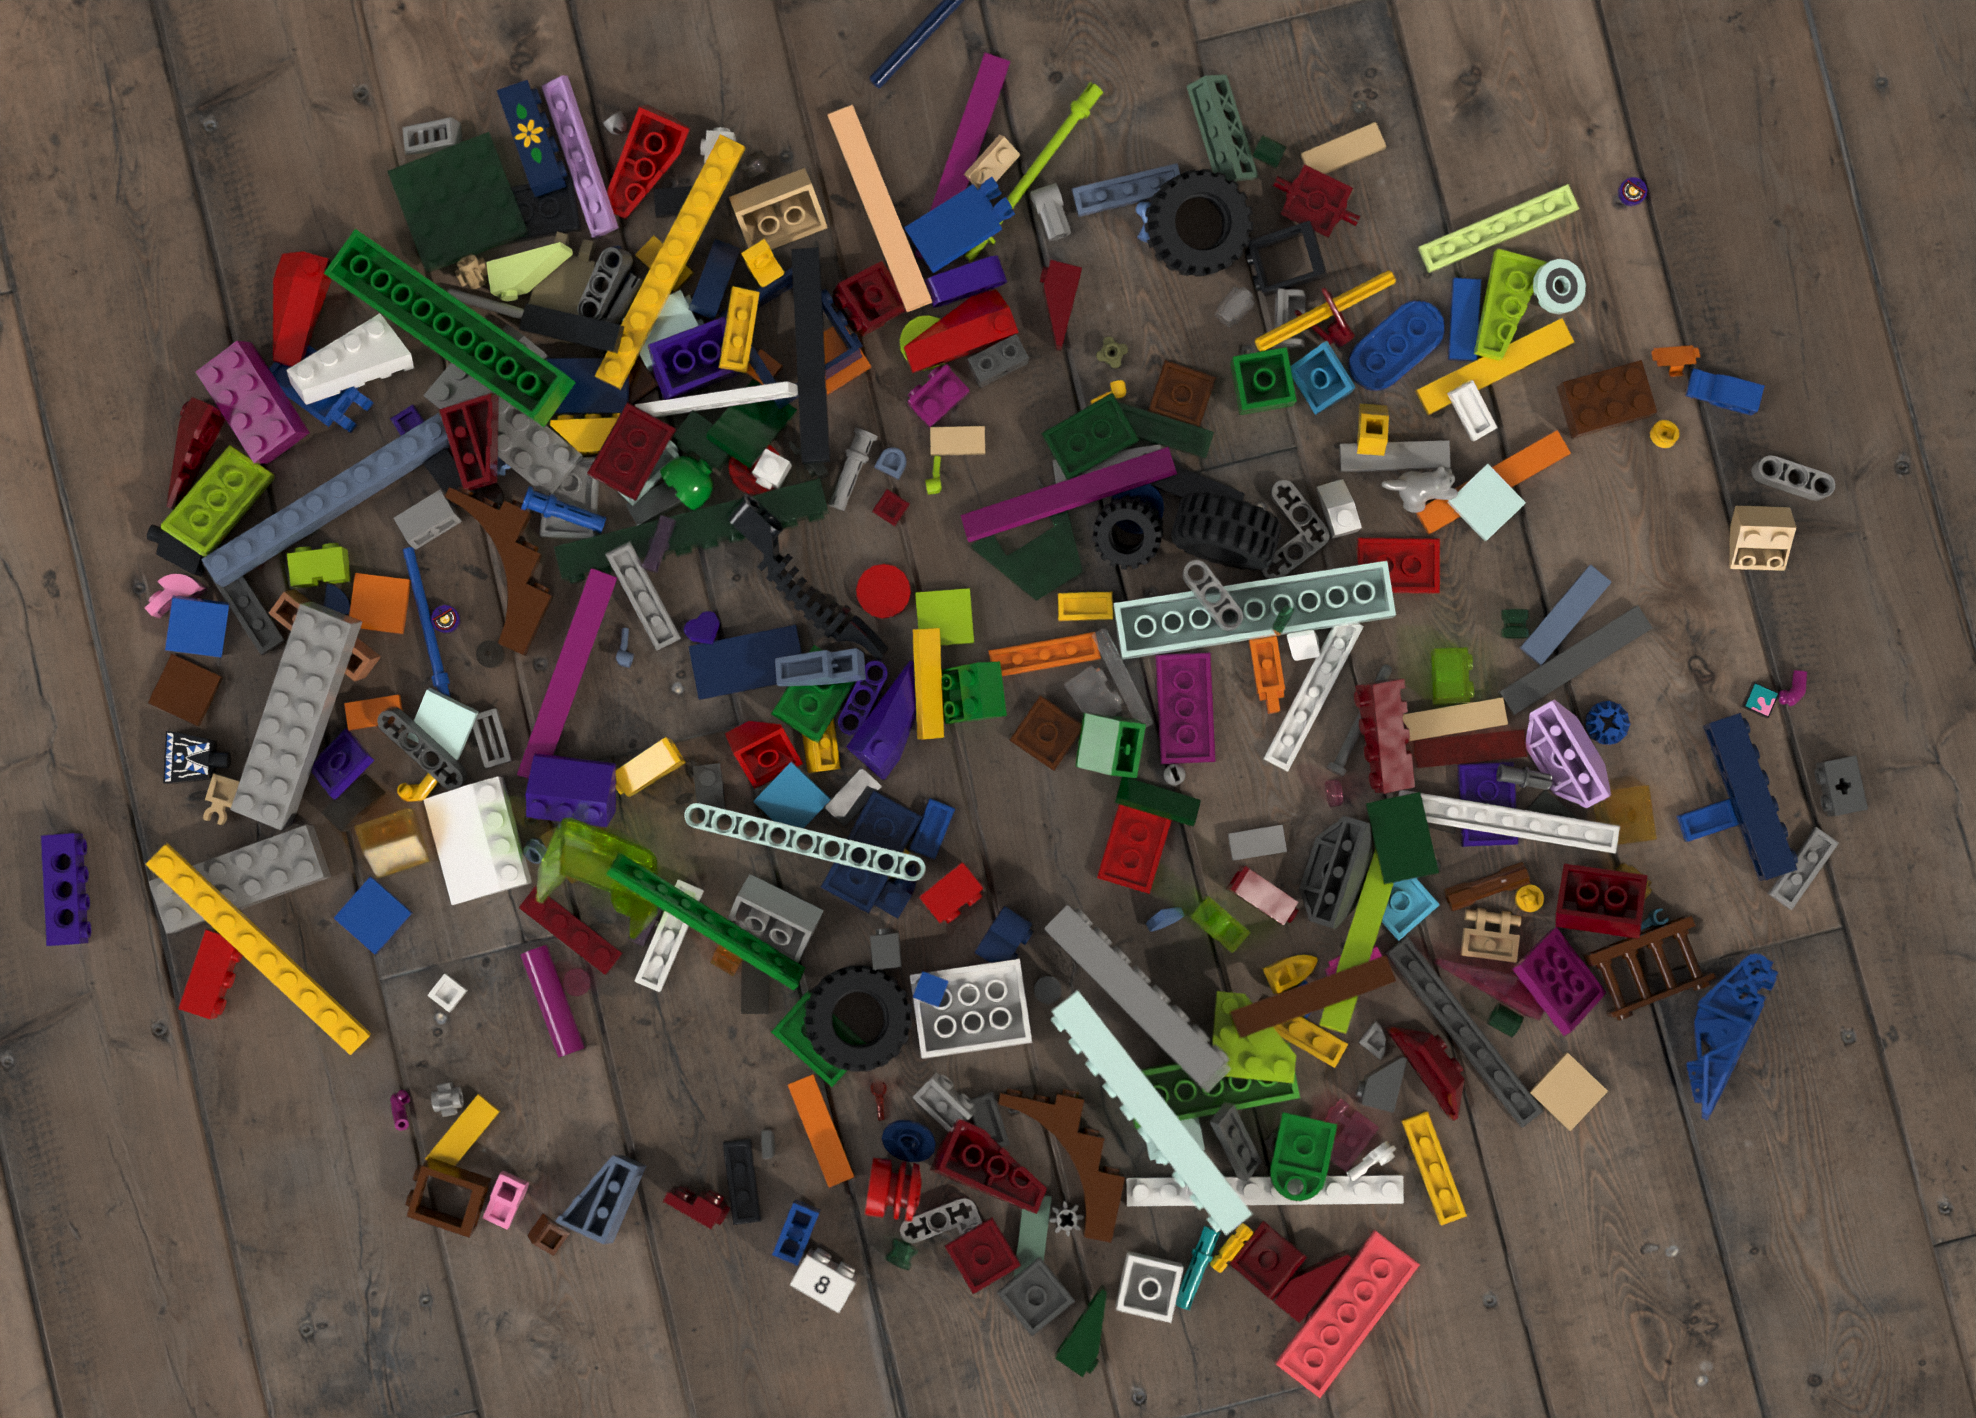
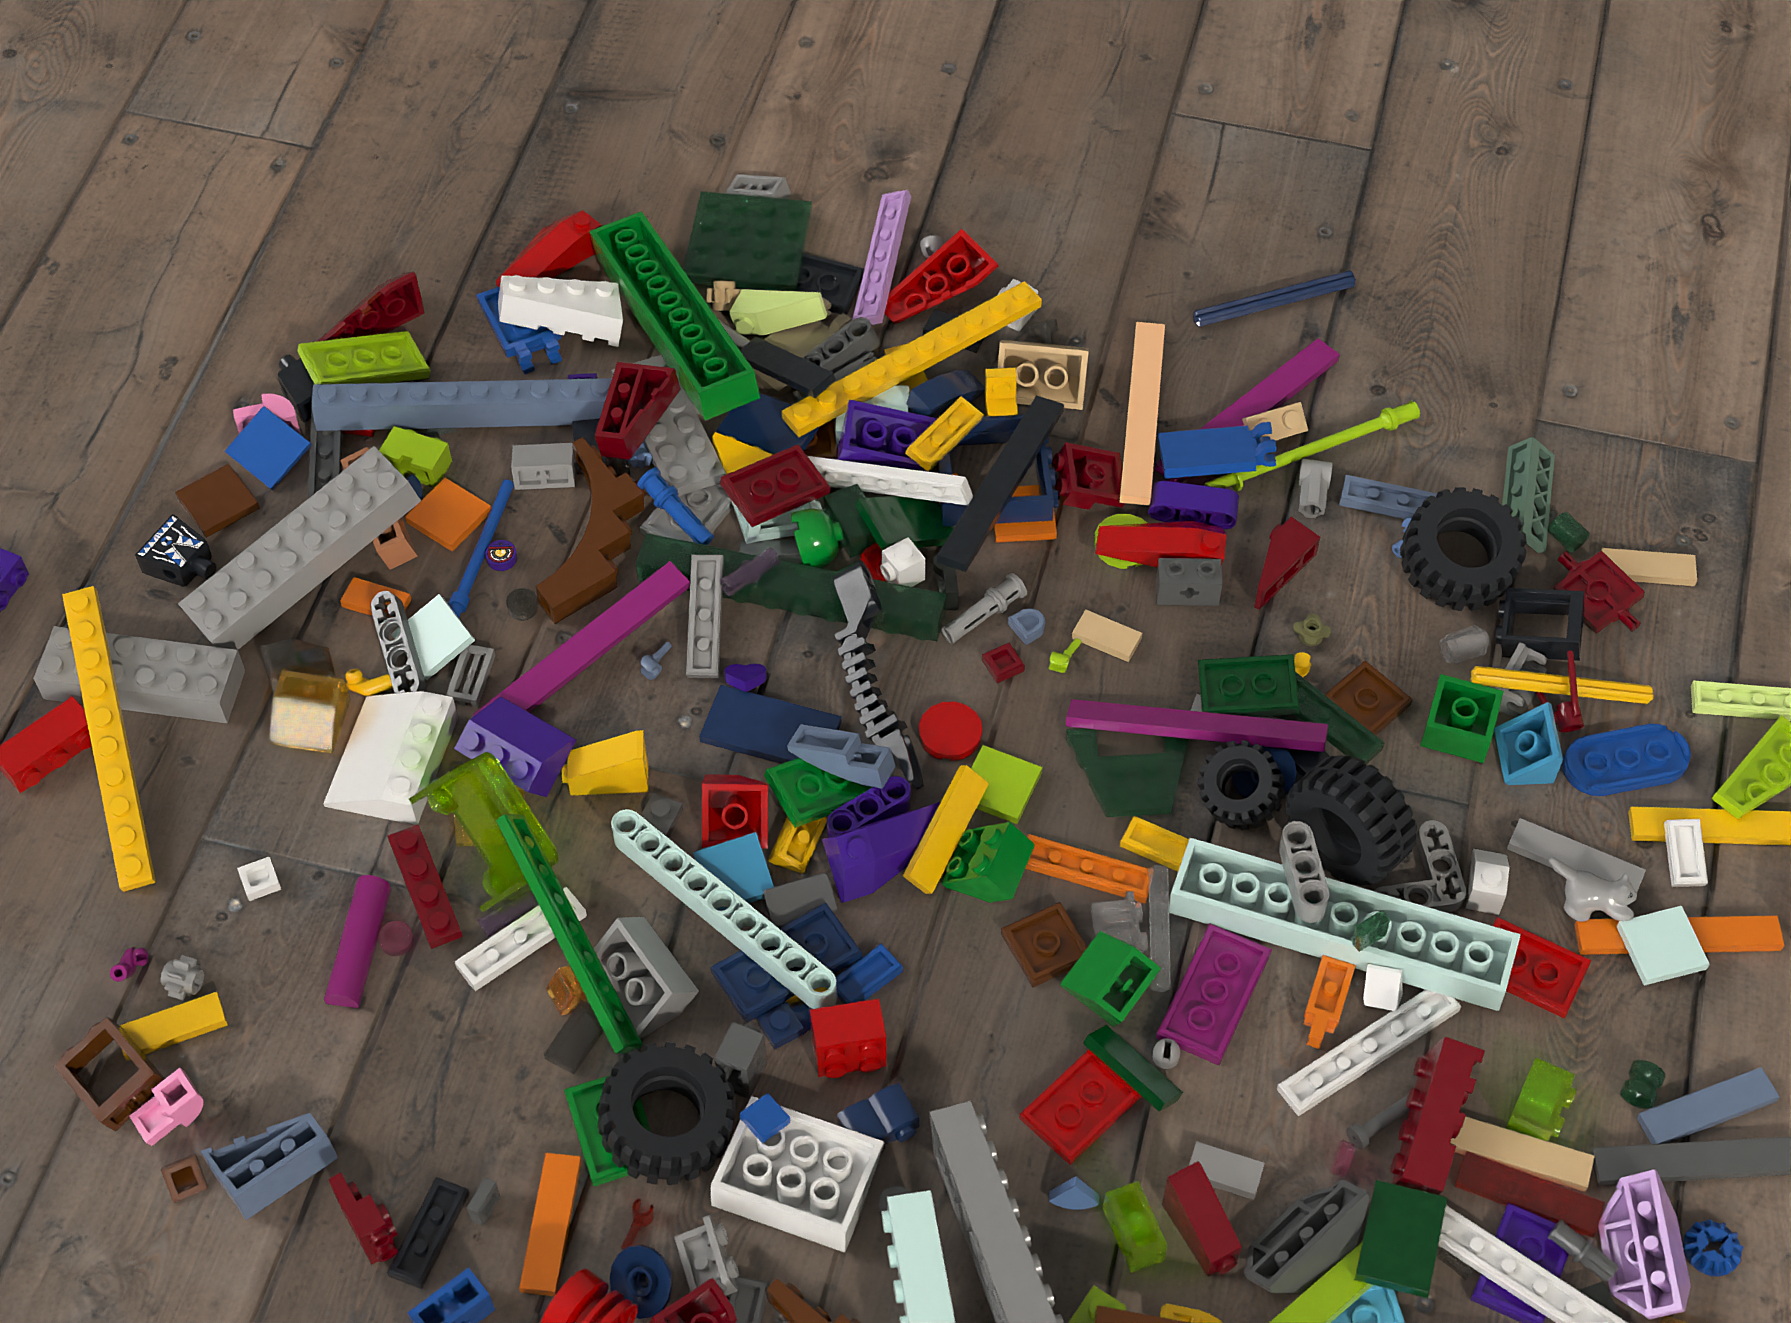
camera: 30 degrees right, 30 degrees down
(221, 794) = (172, 597): tan plate -> none
(252, 402) = (453, 303): magenta brick -> none
(341, 763) = (311, 620): dark purple tile -> none
(373, 915) = (240, 774): blue tile -> none
(531, 137) = (847, 222): dark blue brick -> none
(937, 395) = (1108, 585): magenta bracket -> none
(1372, 429) = (1562, 814): yellow slope -> none
(1464, 319) = (1714, 767): blue tile -> none

